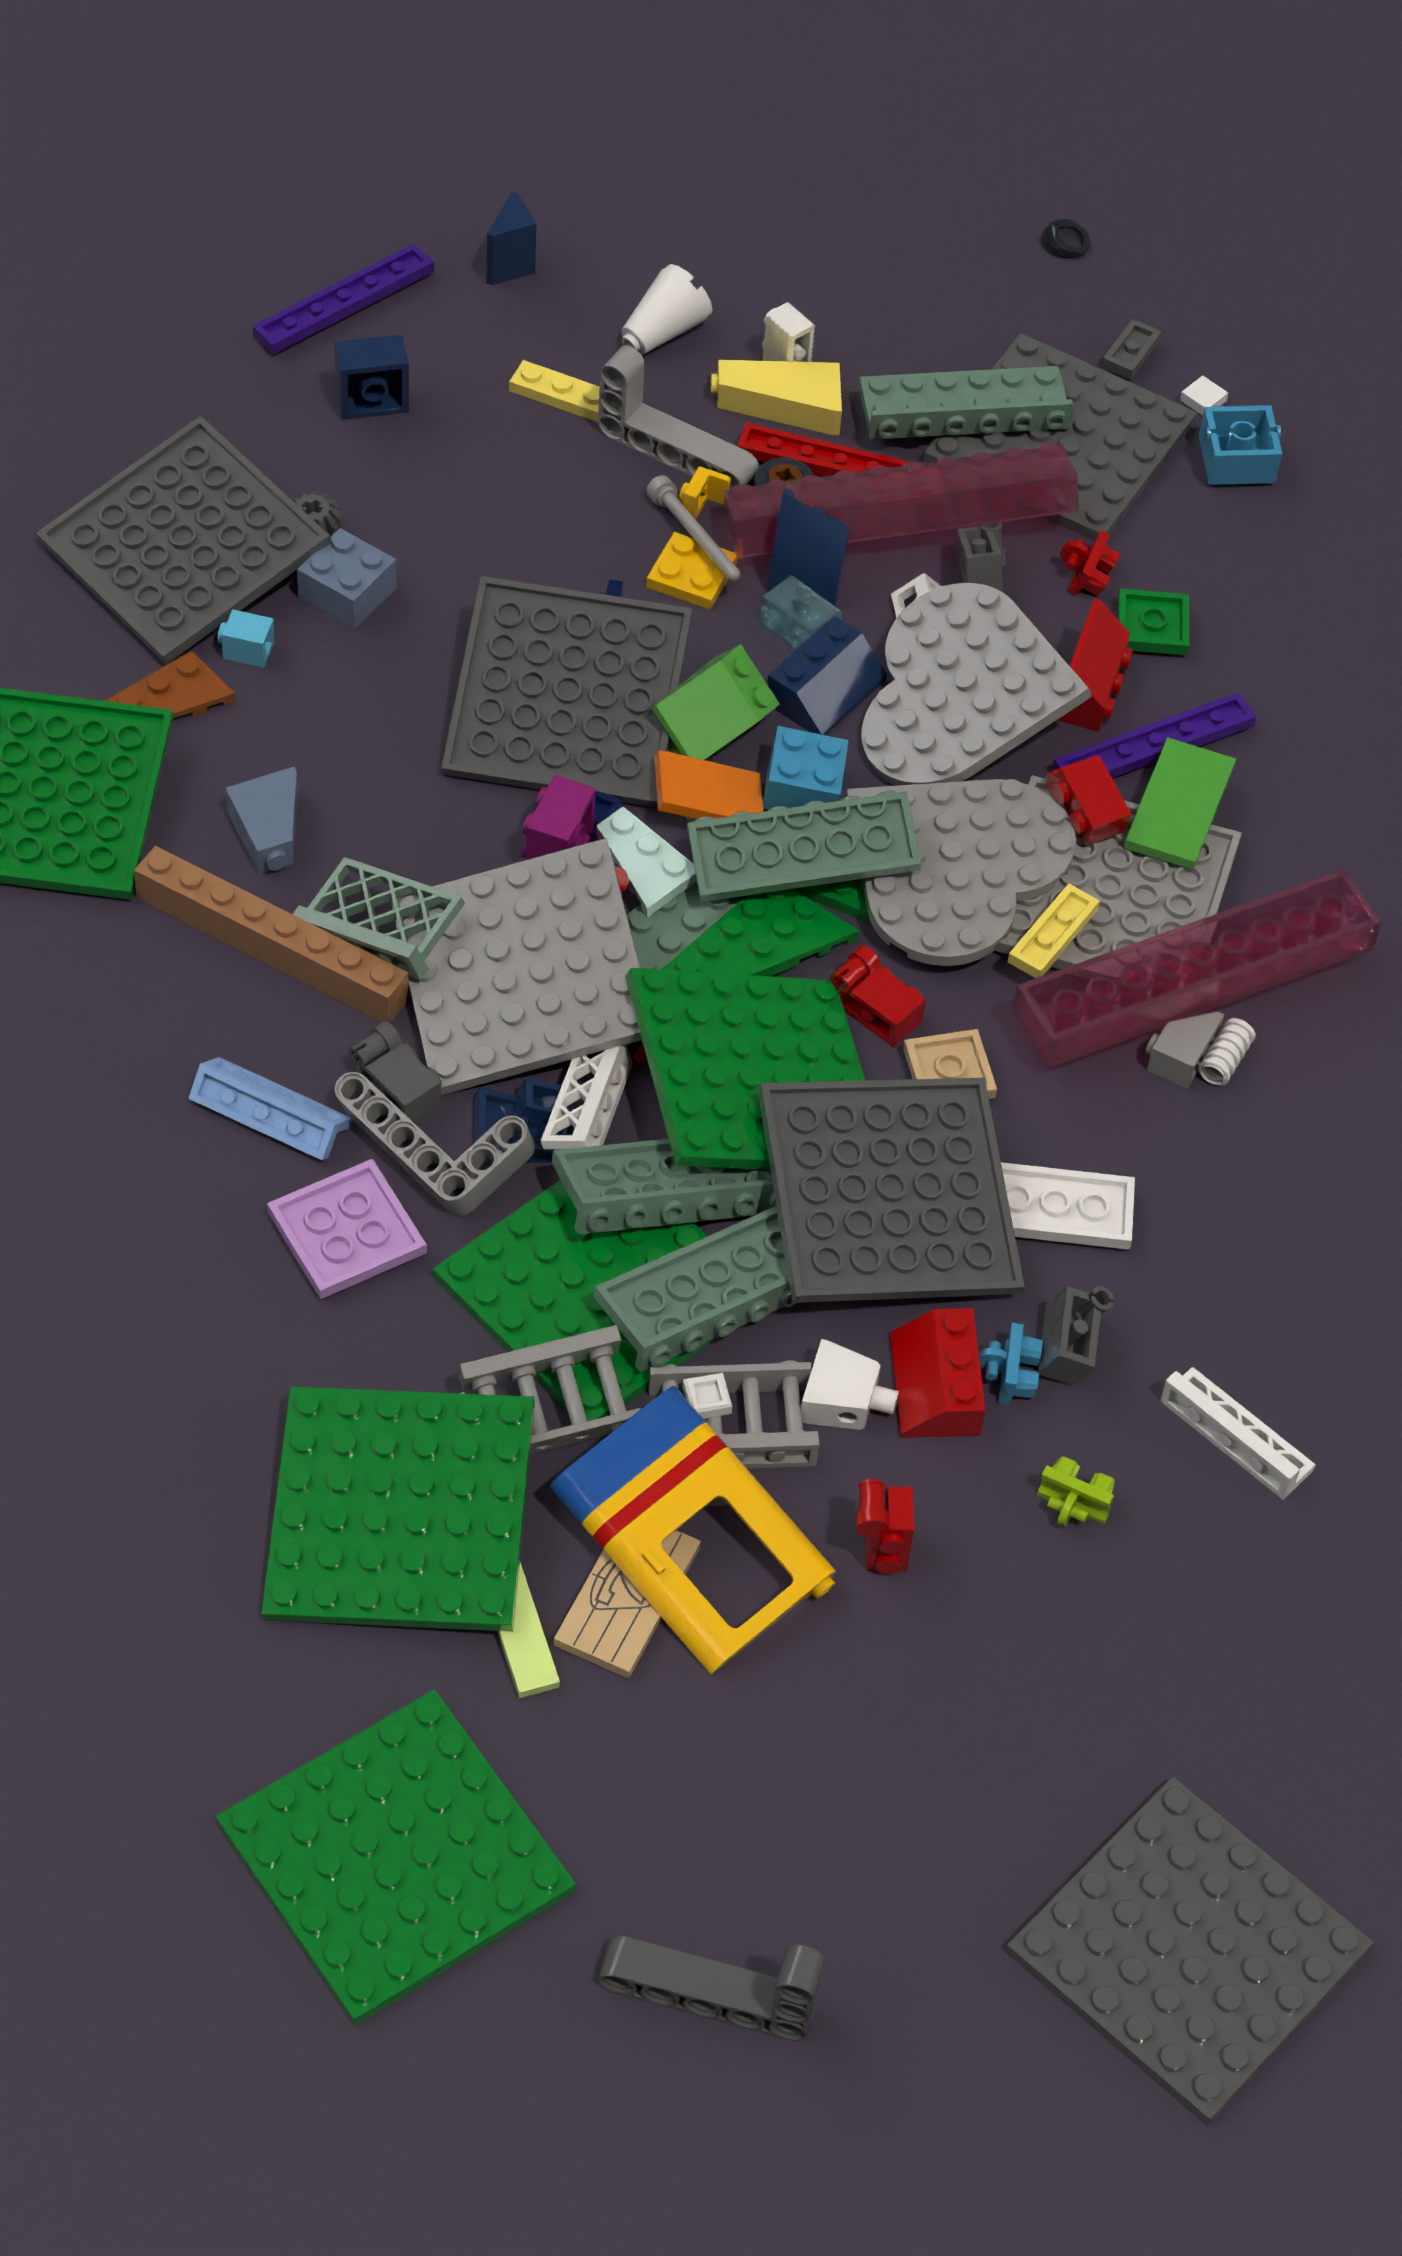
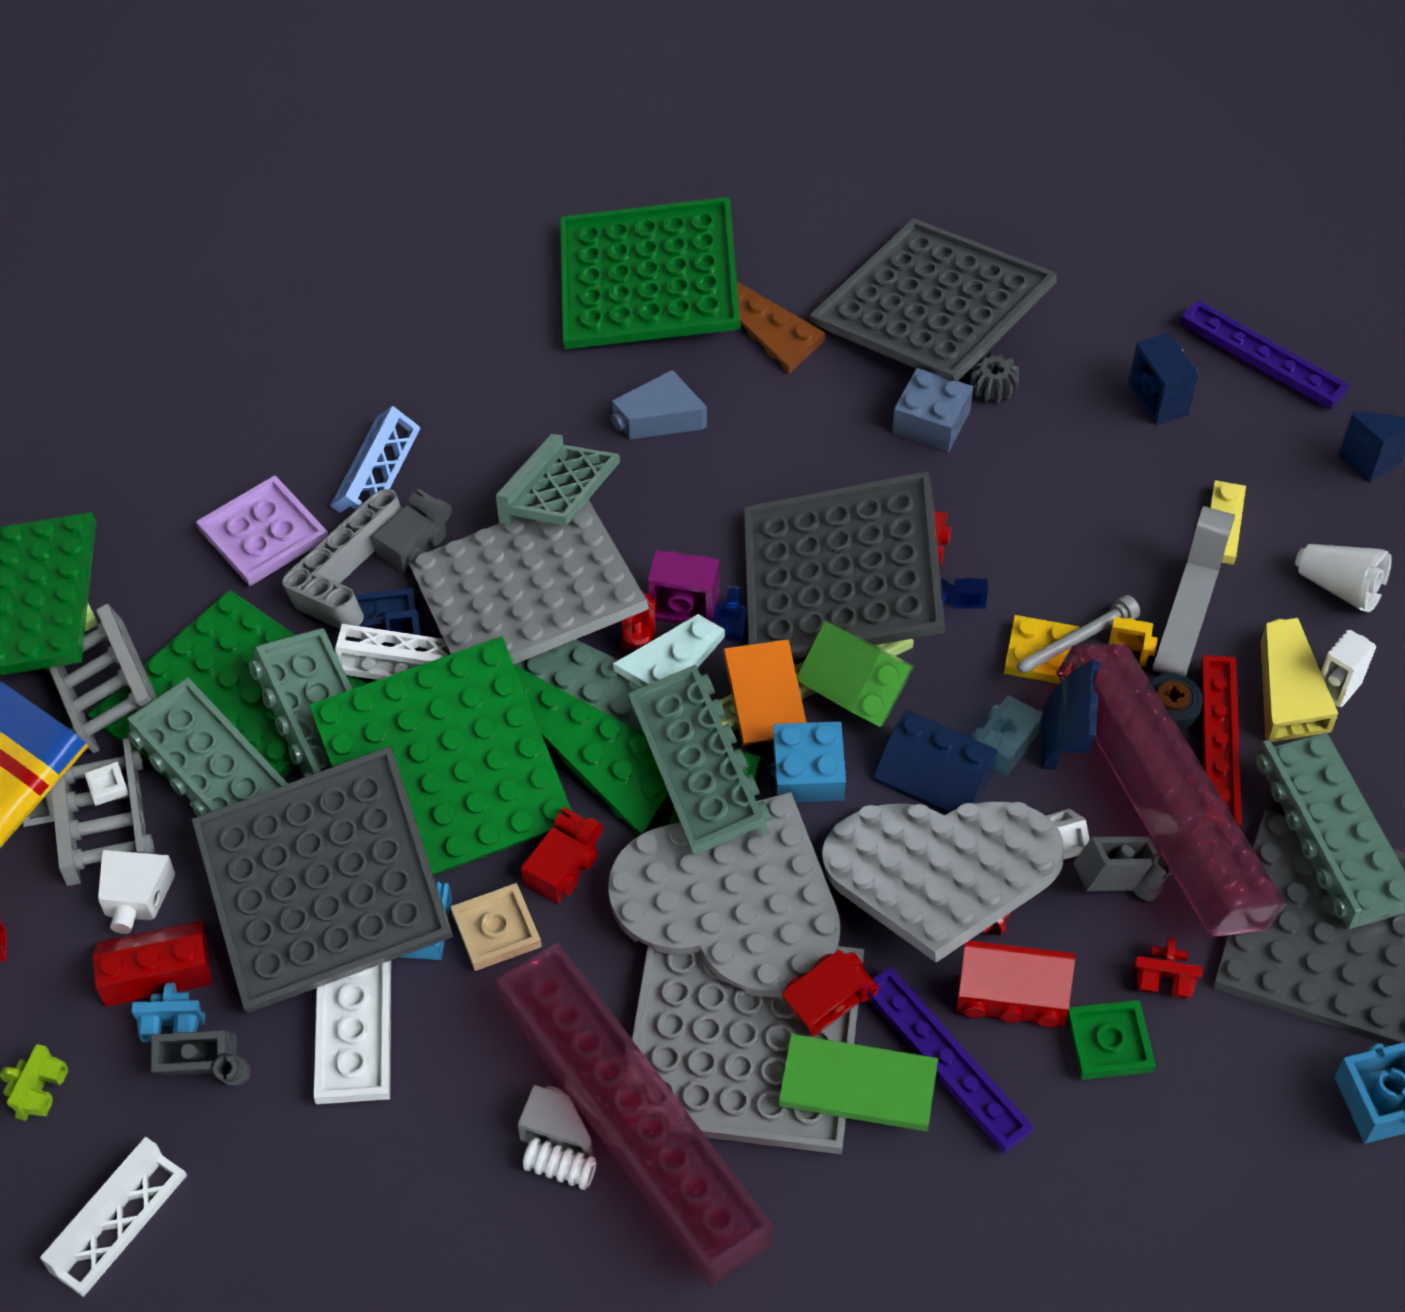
camera: 85 degrees right, 0 degrees up
(247, 638) = (847, 362): medium azure brick -> none
(272, 935) = (543, 416): medium nougat brick -> none
(1053, 931) = (660, 983): light yellow plate -> none

